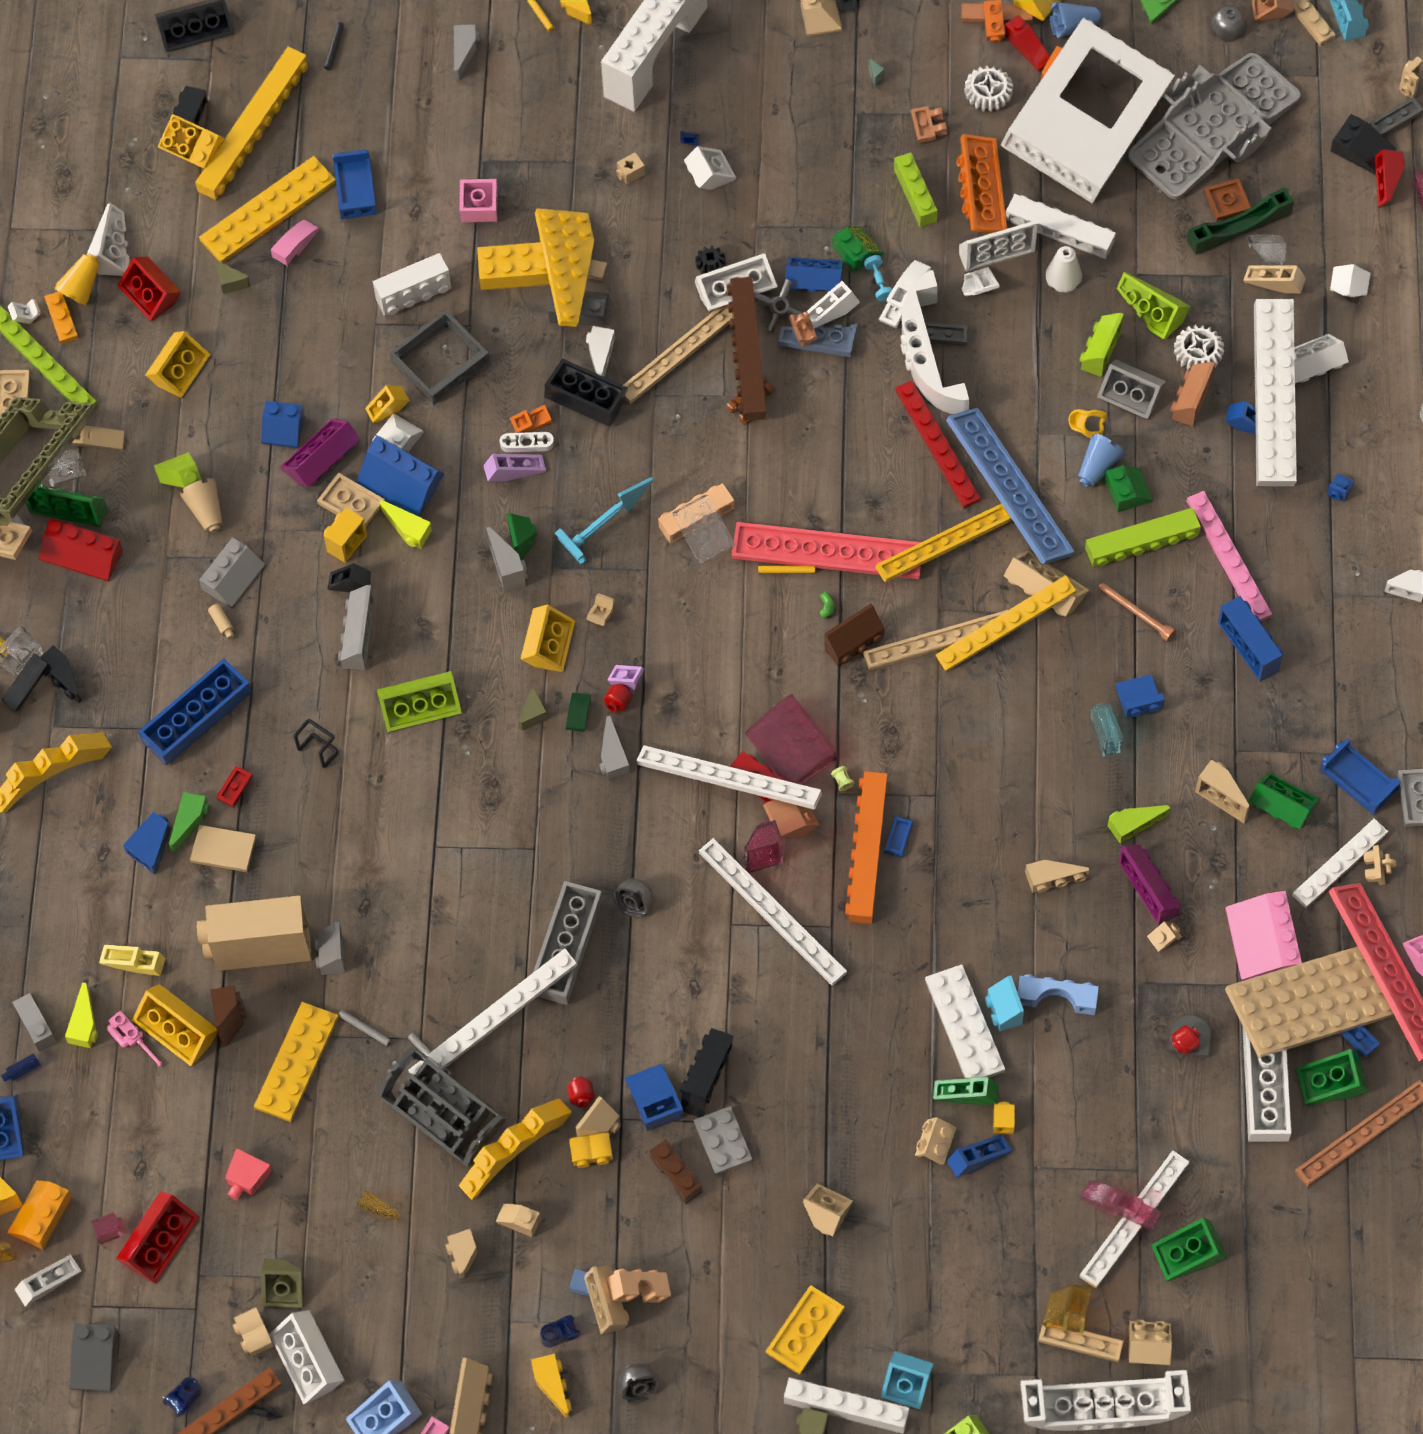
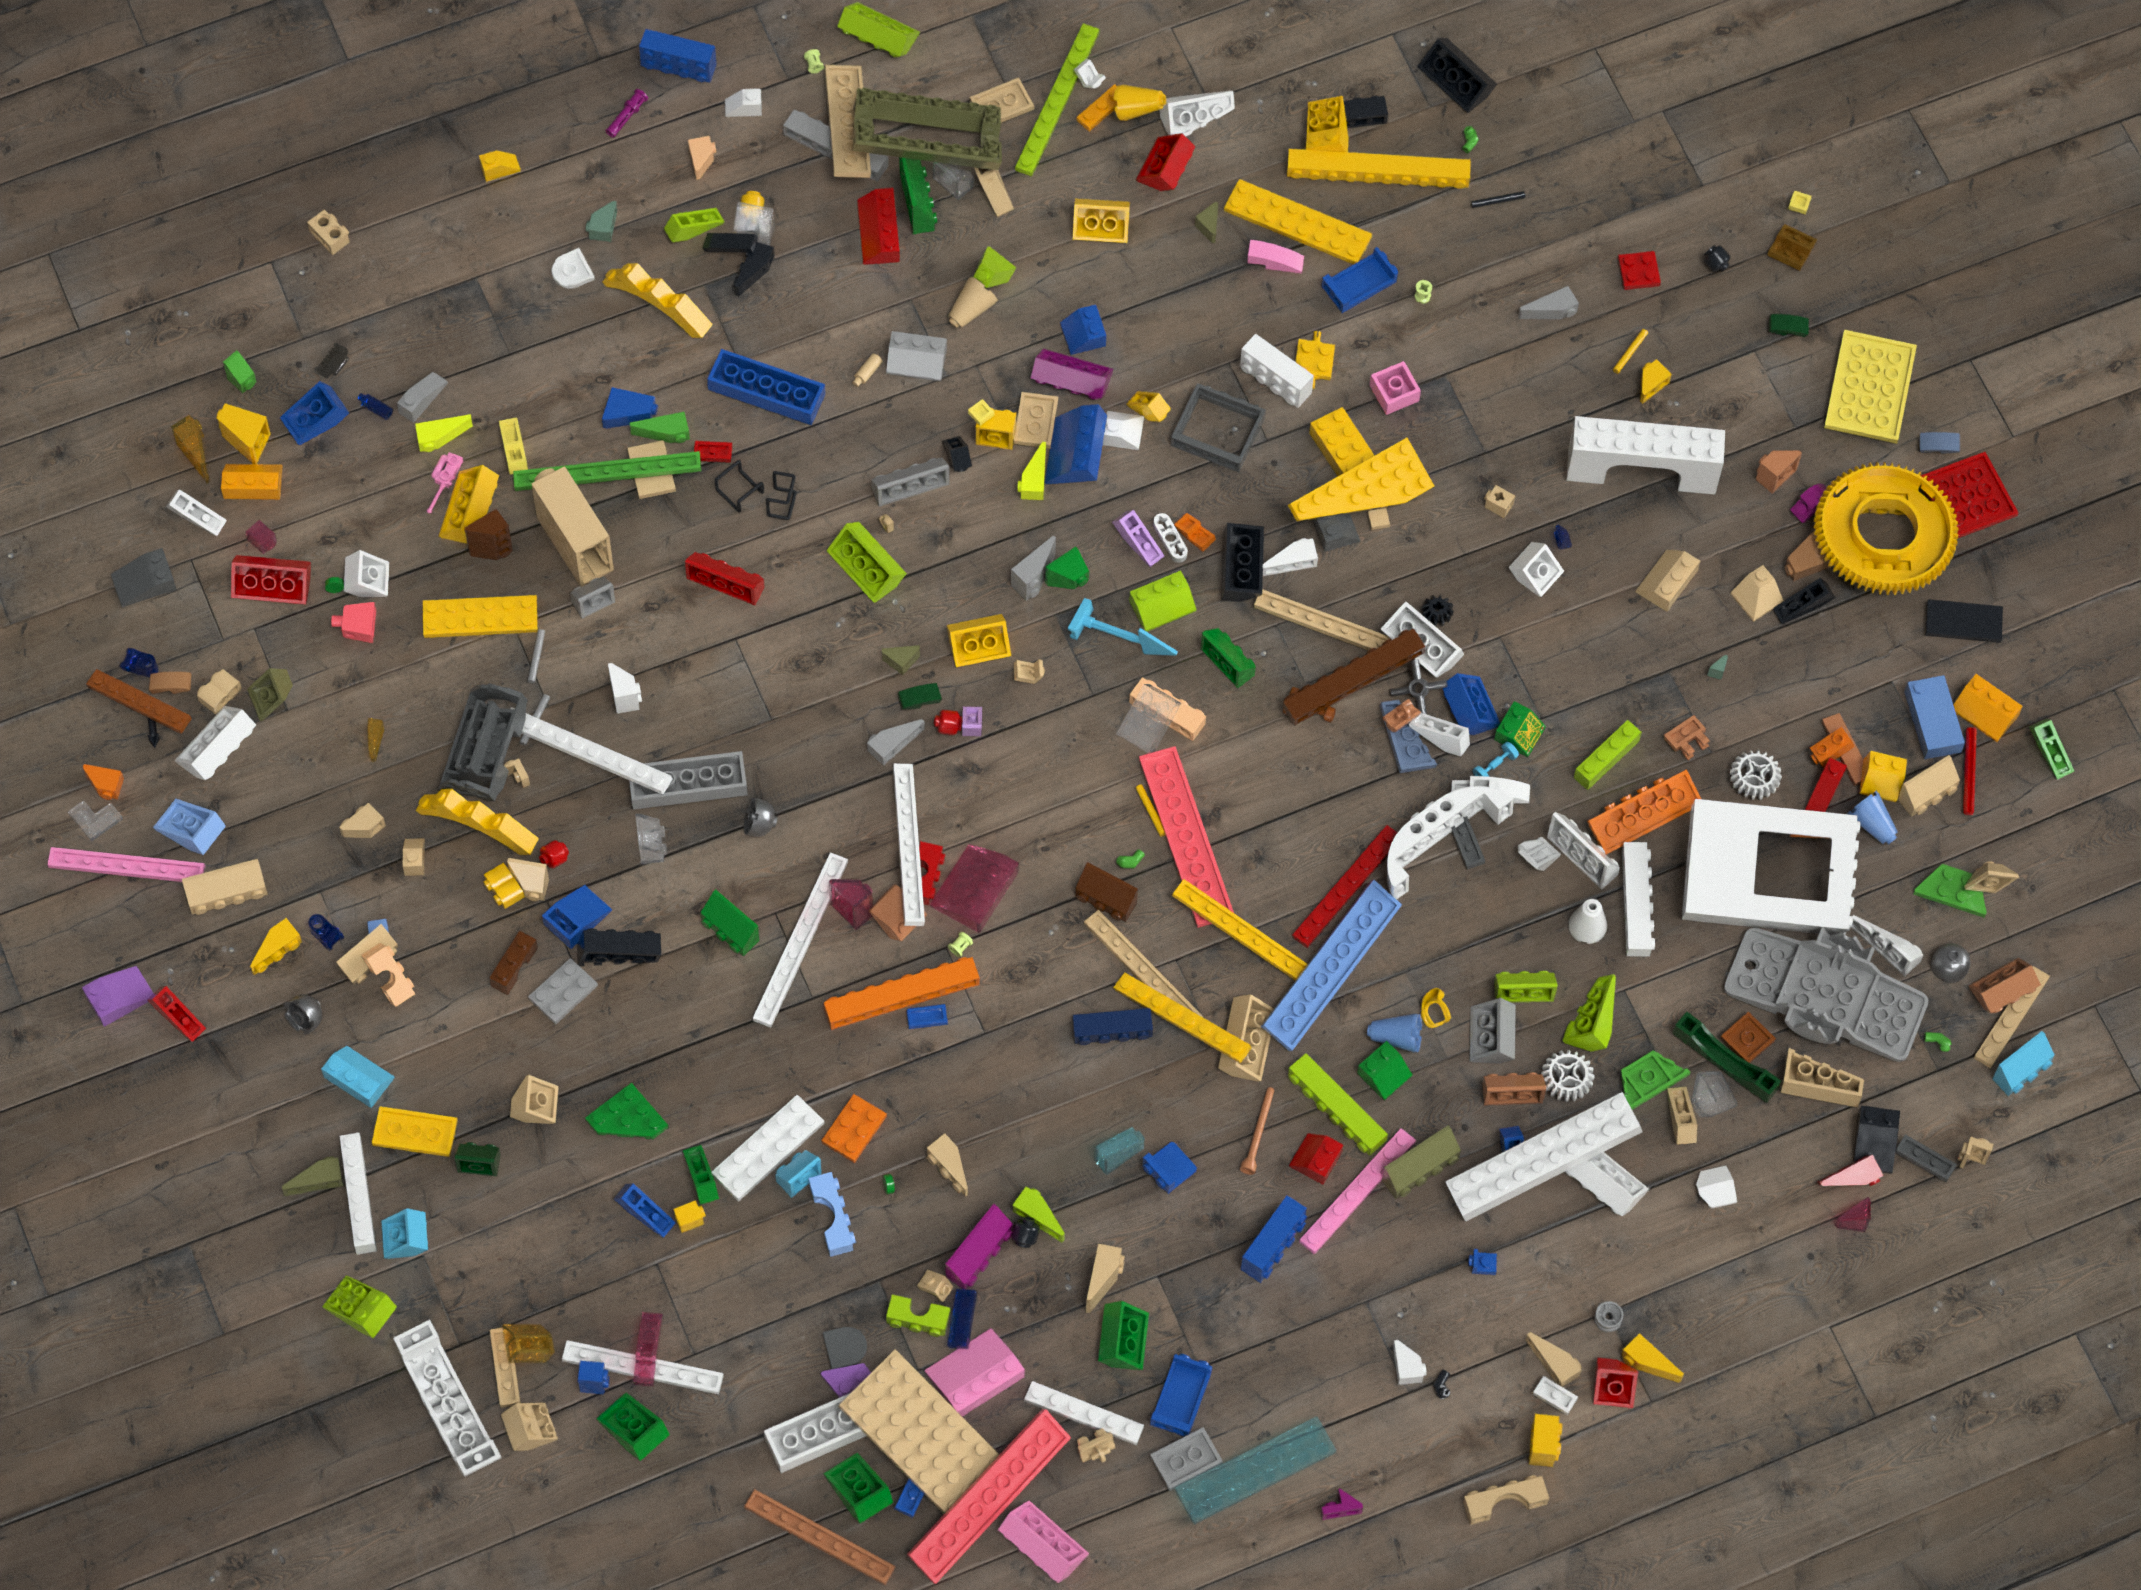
camera: 60 degrees right, 0 degrees up
(194, 1180) = (334, 585): none -> green tile
(200, 1147) = (366, 575): none -> white slope
(206, 885) = (618, 469): none -> bright green plate
(219, 1373) = (170, 681): none -> medium nougat slope
(262, 40) = (1471, 138): none -> bright green arm
(265, 772) = (760, 486): none -> black piece
(332, 534) = (981, 412): none -> light yellow plate
(373, 827) = (724, 578): none -> red slope
(386, 668) = (886, 522): none -> tan tile
(394, 140) = (1422, 291): none -> yellowish green bush
(409, 250) = (1315, 357): none -> yellow plate
(444, 960) = (624, 689): none -> white slope
(482, 1088) = (516, 768): none -> tan bracket
(588, 473) = (1162, 601): none -> lime slope
(609, 1000) = (650, 839): none -> clear slope
(671, 443) = (1227, 656): none -> green slope
(723, 1360) = (357, 1075): none -> medium azure slope
(730, 963) = (730, 923): none -> green slope
(771, 73) = (1668, 578): none -> tan slope
(862, 1281) = (478, 1159): none -> dark green slope
(876, 1133) = (627, 1116): none -> green plate
(935, 1140) = (642, 1168): tan bracket -> none
(979, 942) = (854, 1128): none -> orange plate
(983, 685) = (1112, 1026): none -> dark blue brick
(1049, 934) = (888, 1183): none -> green tile
(1130, 1264) = (593, 1377): none -> blue brick
(1150, 838) = (1025, 1232): none -> black head
(1181, 975) = (933, 1322): none -> lime arch
(1184, 574) = (1317, 1157): none -> red slope
(1186, 1039) = (834, 1340): red head -> none
(1205, 53) = (1894, 949): none -> white wedge
(1208, 926) = (962, 1319): none -> clear blue plate
(1224, 1047) = (845, 1379): none -> medium lavender wing
(1229, 289) = (1649, 1078): none -> bright green wing
(1230, 494) = (1421, 1163): none -> olive slope
(1293, 162) = (1819, 1081): none -> tan wedge
(1296, 59) = (1939, 1038): none -> bright green arm

